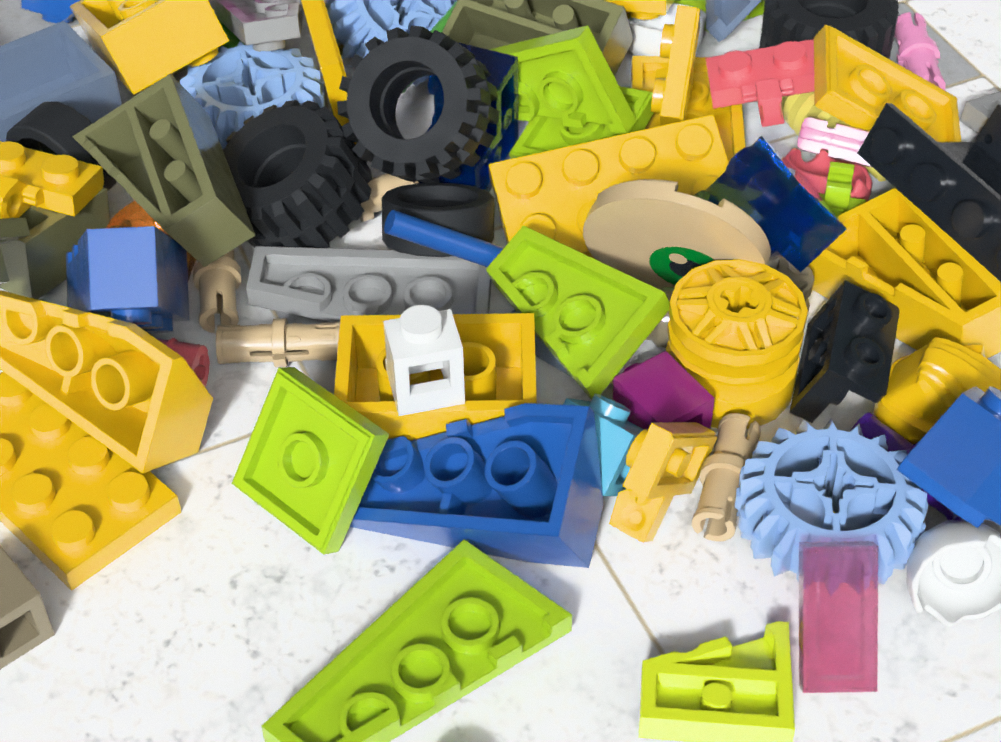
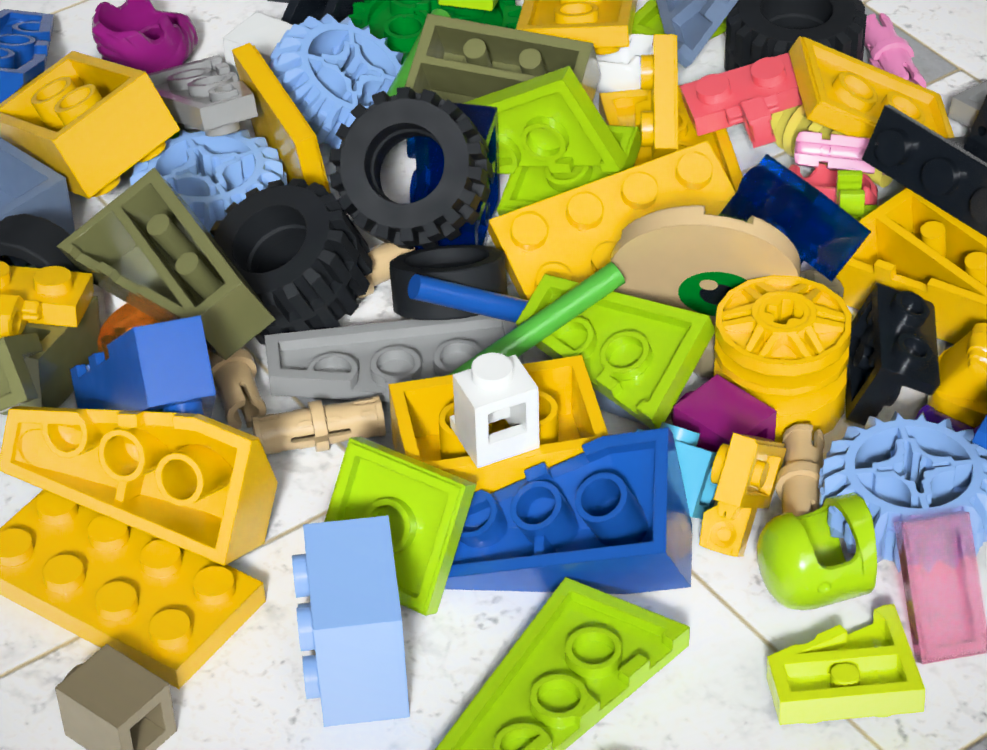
camera: 10 degrees left, 5 degrees down
(235, 556) = (351, 621): none -> light blue brick
(514, 271) = (554, 315): none -> bright green bar
(710, 564) = (807, 565): none -> lime helmet

